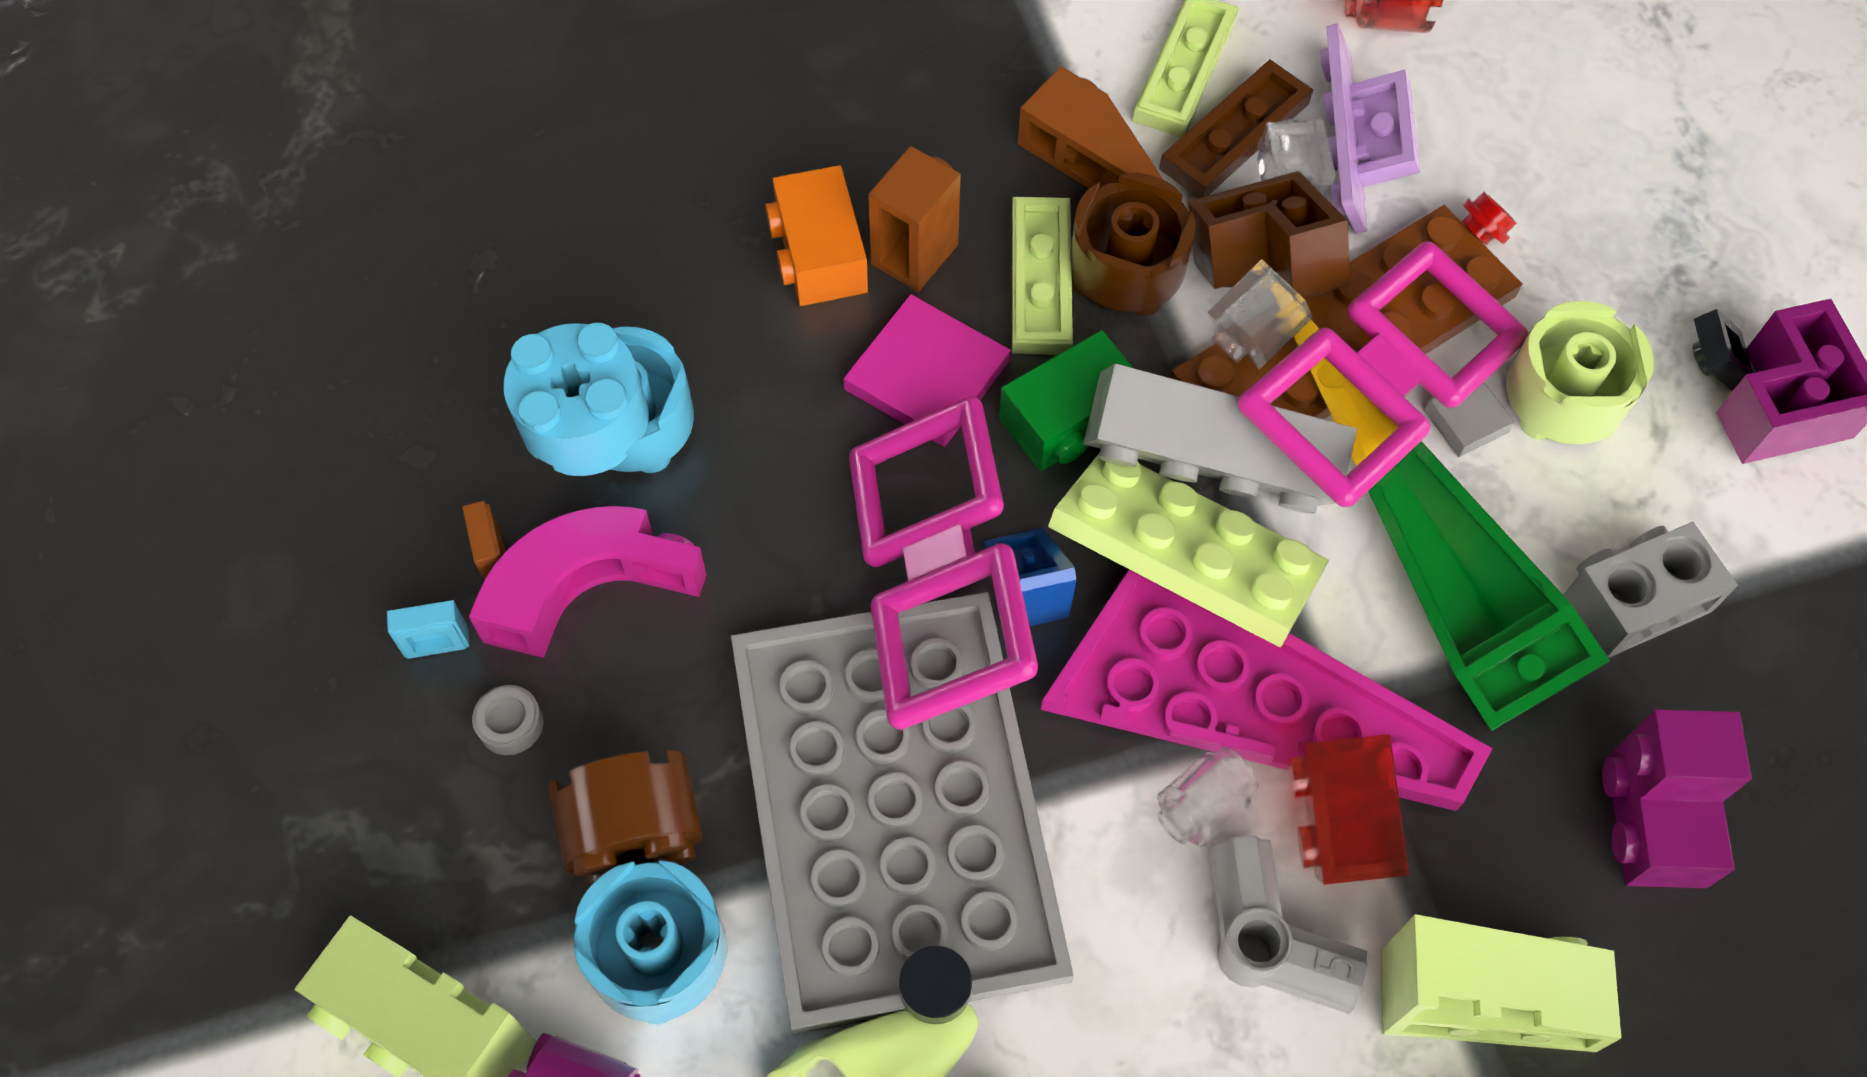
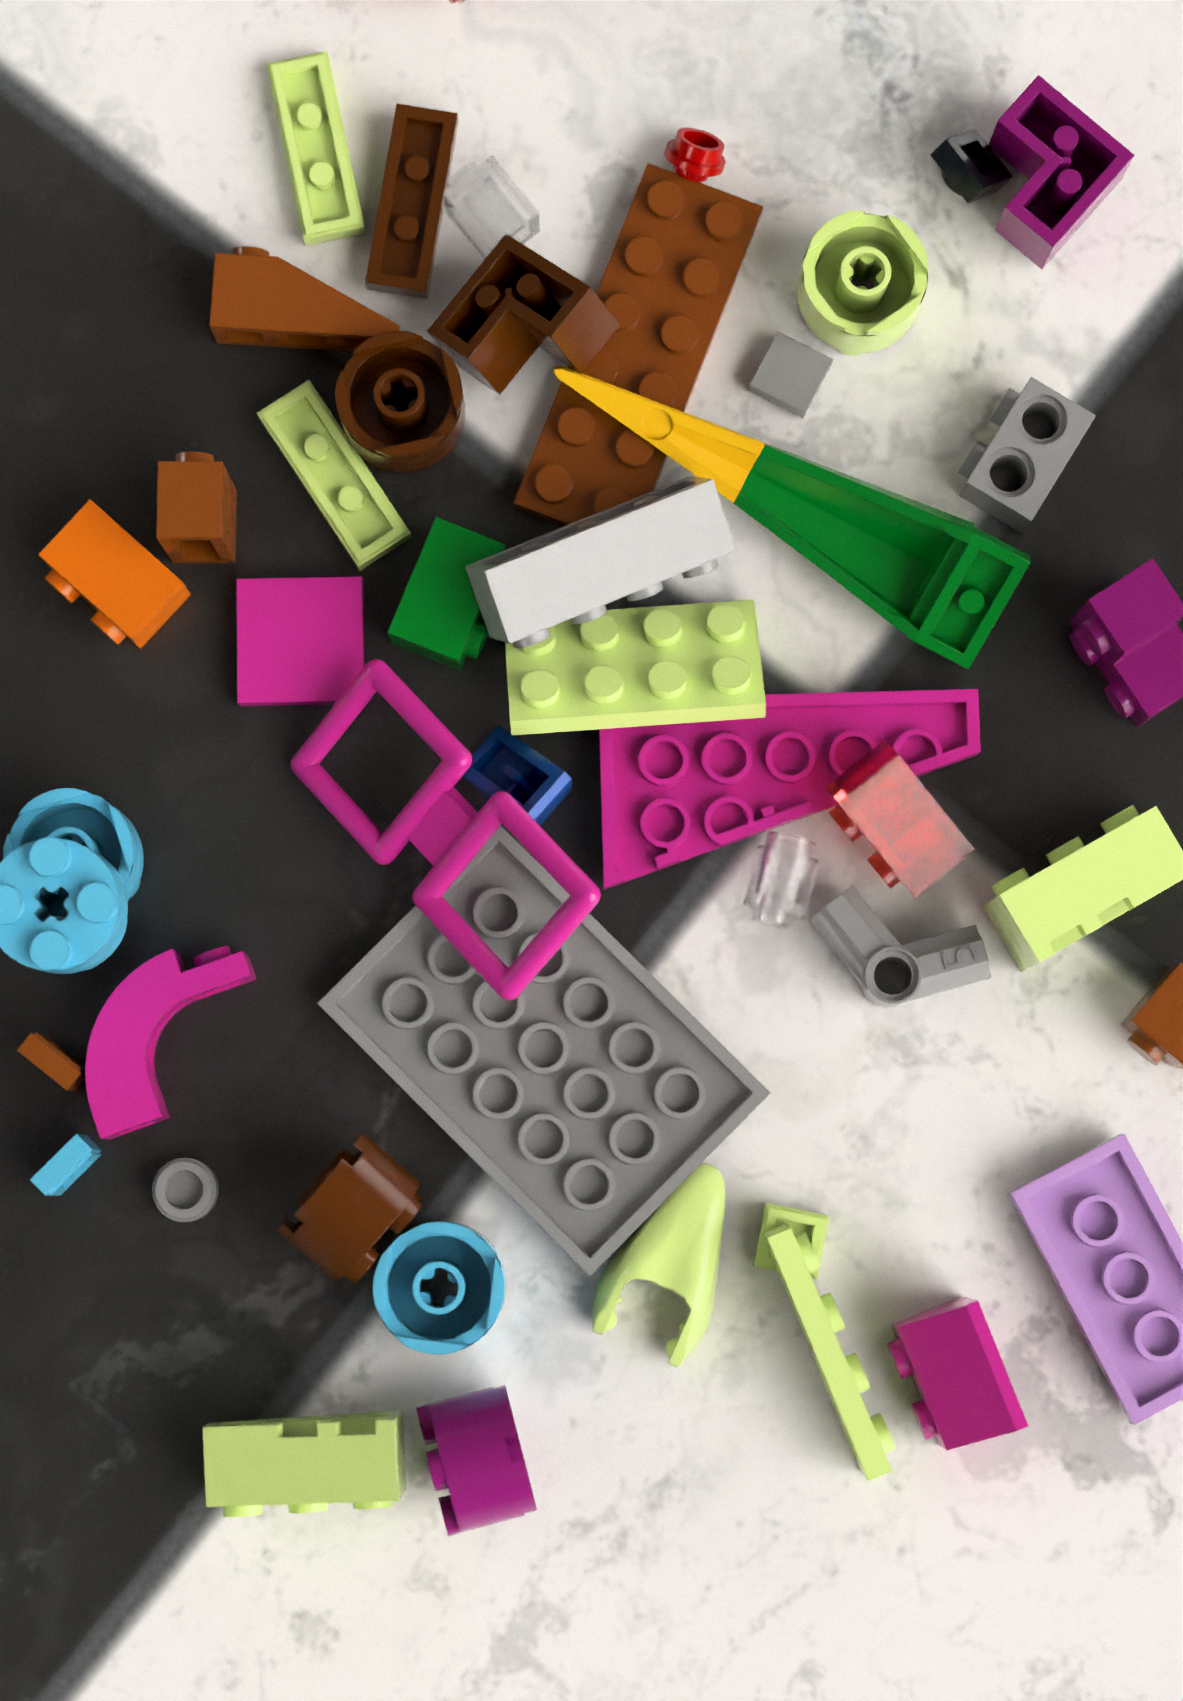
camera: 35 degrees left, 20 degrees up
(935, 984) = (675, 1173): black tile -> none
(1258, 316) = (564, 420): clear brick -> none
(1372, 129) = (533, 120): lavender bracket -> none
(1383, 373) = (703, 401): dark pink bar -> none

